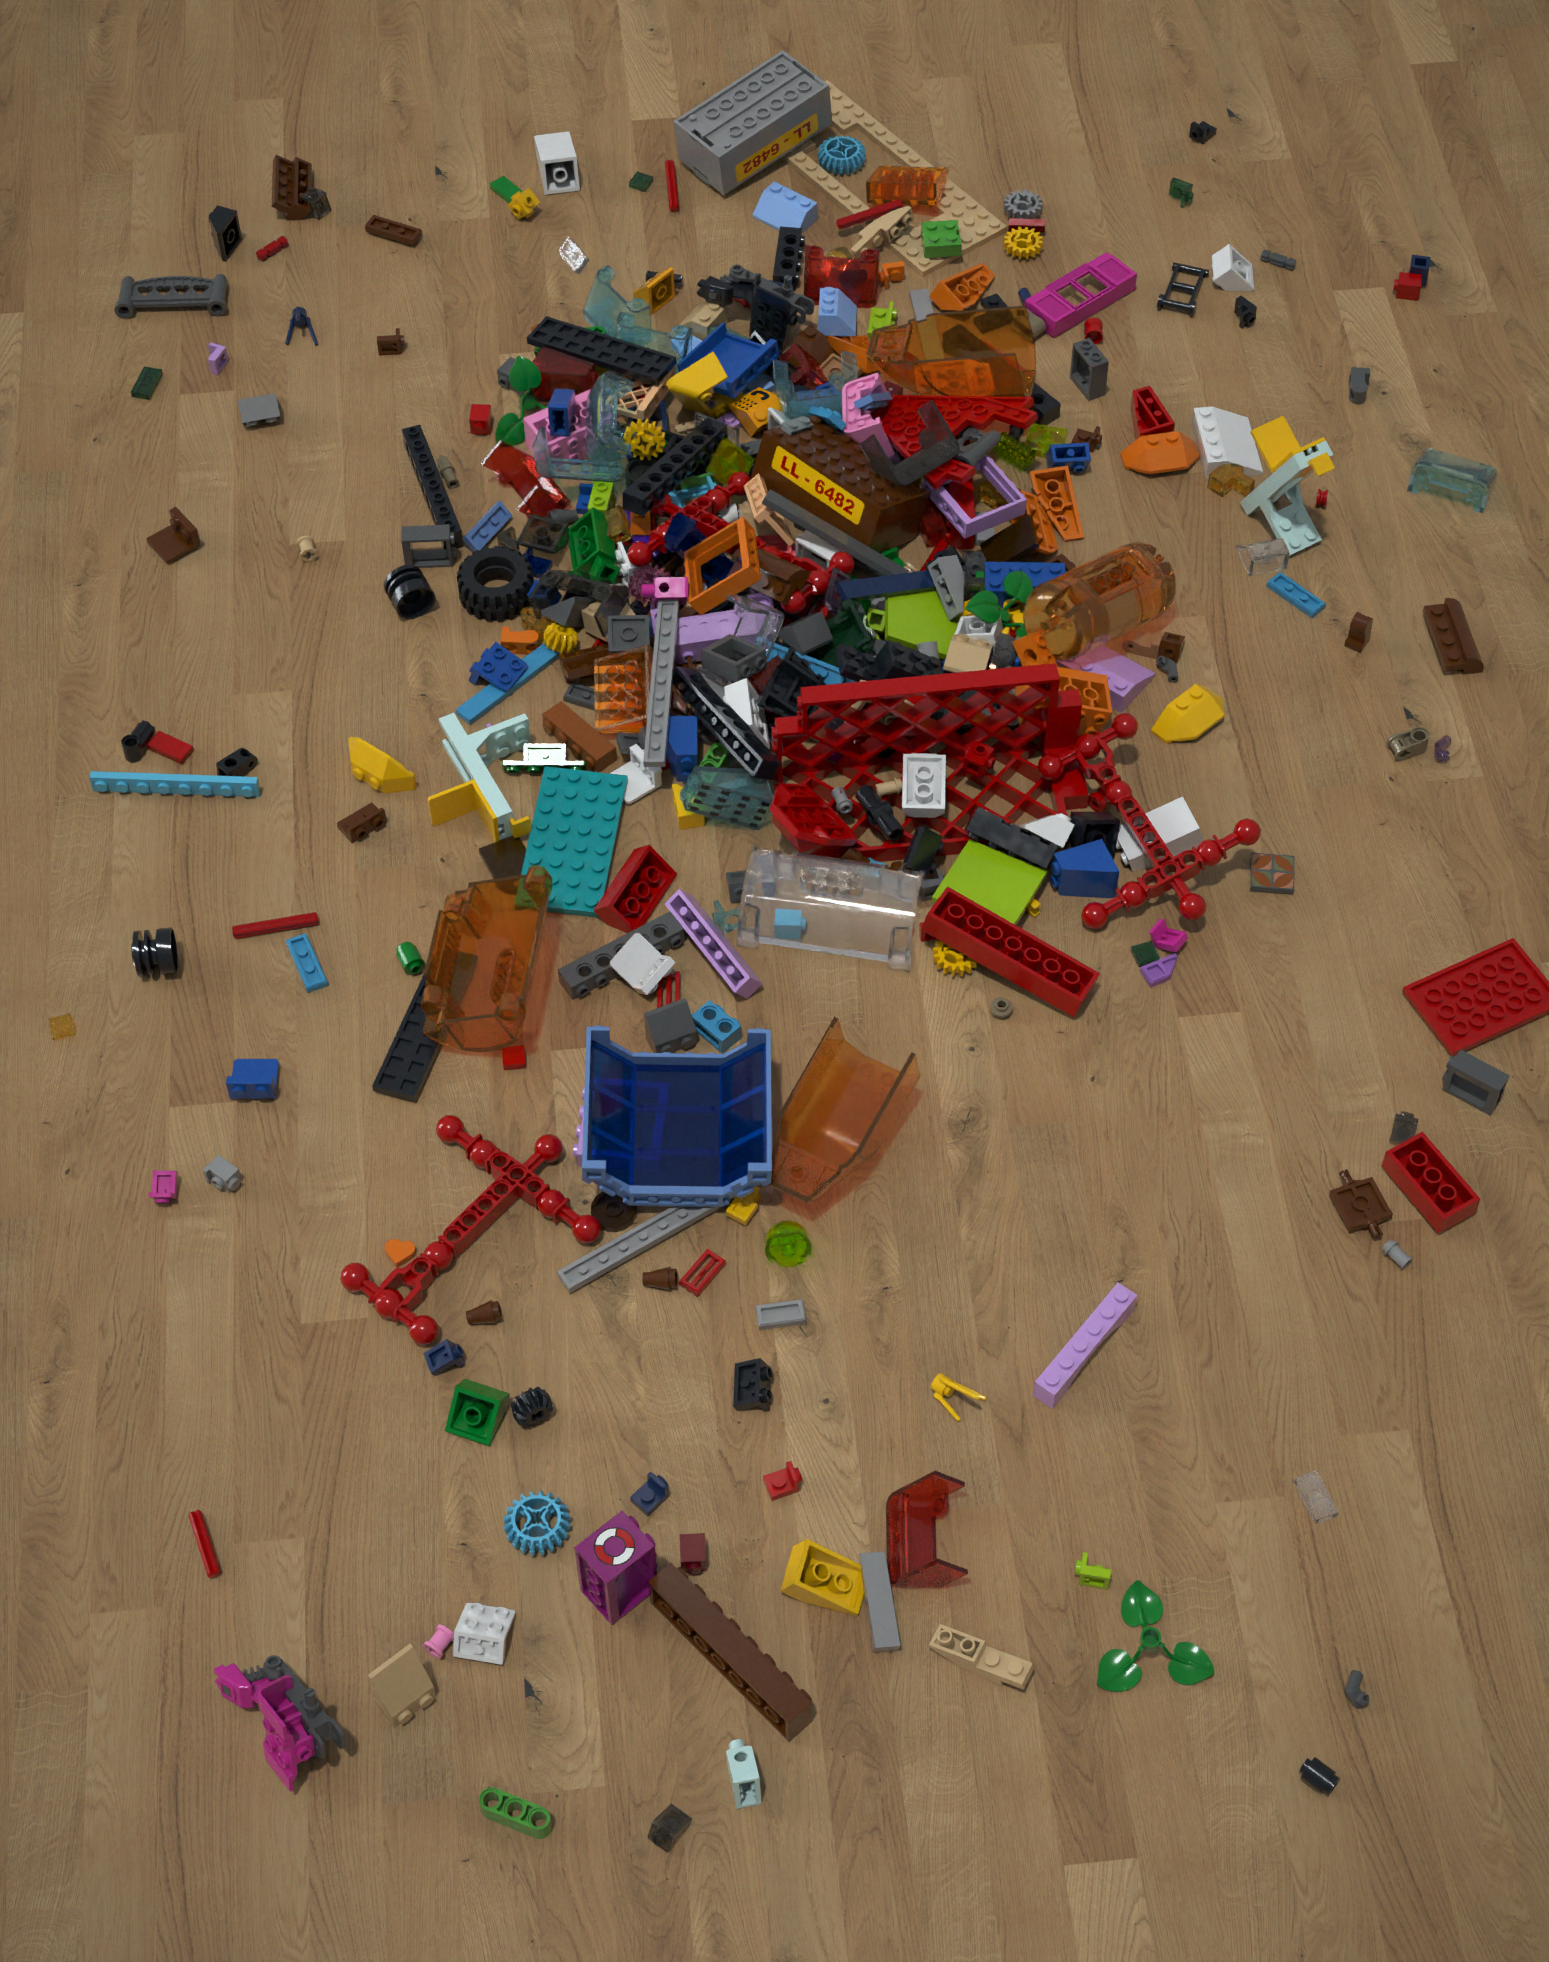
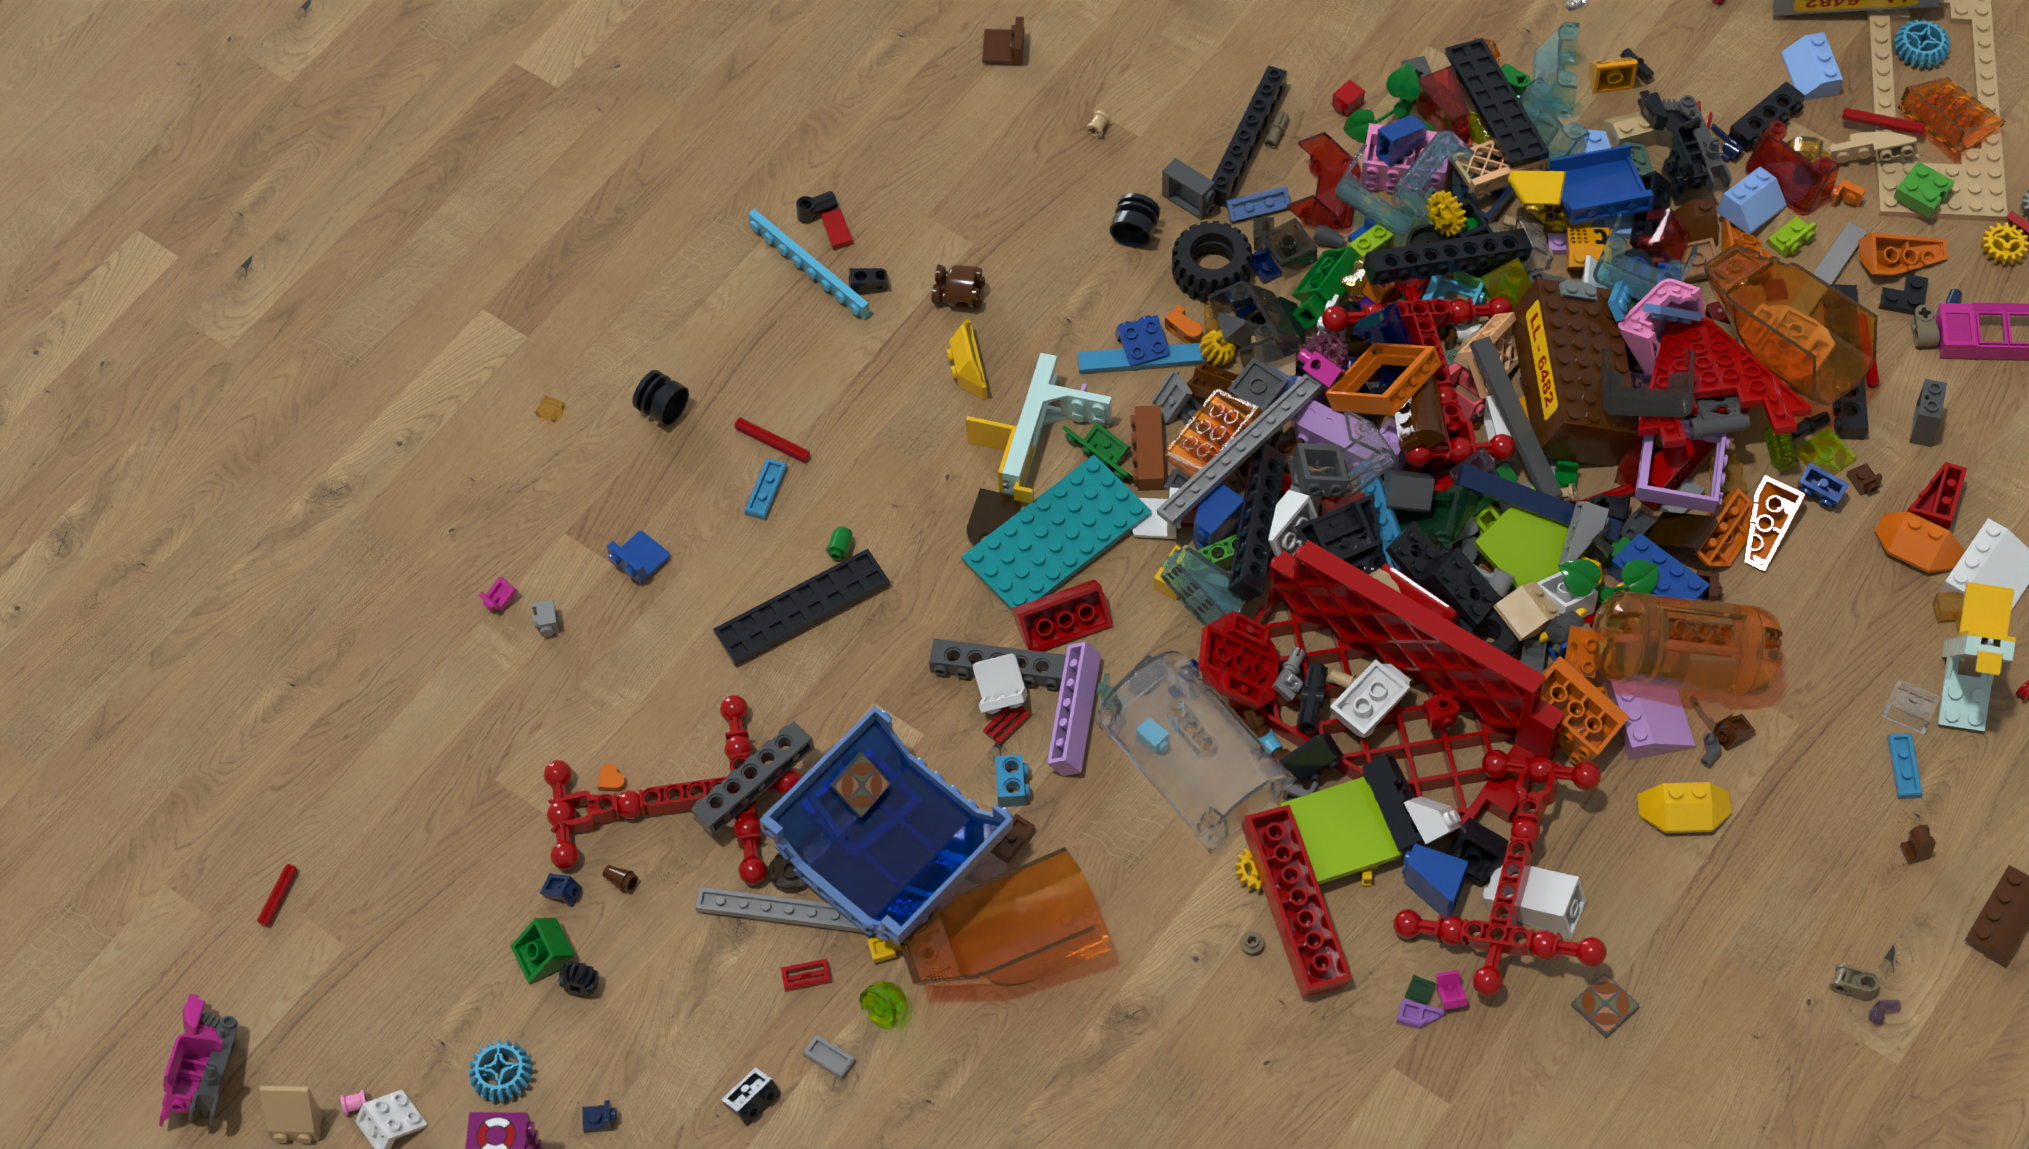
camera: 45 degrees right, 5 degrees up
(319, 719) = (961, 286): none -> reddish brown piece
(362, 822) = (915, 399): reddish brown bracket -> none
(485, 961) = (876, 588): clear orange cylinder -> none
(513, 1057) = (839, 686): red tile -> none
(523, 1211) = (750, 789): none -> dark grey brick
(563, 687) = (1172, 396): none -> light grey plate
(620, 1098) = (859, 784): none -> tile
(662, 1278) = (770, 955): reddish brown cone -> none
(670, 1028) = (969, 755): dark grey slope -> none
(854, 816) = (1287, 684): none -> light grey tile
(1093, 330) = (1980, 376): red wheel -> none

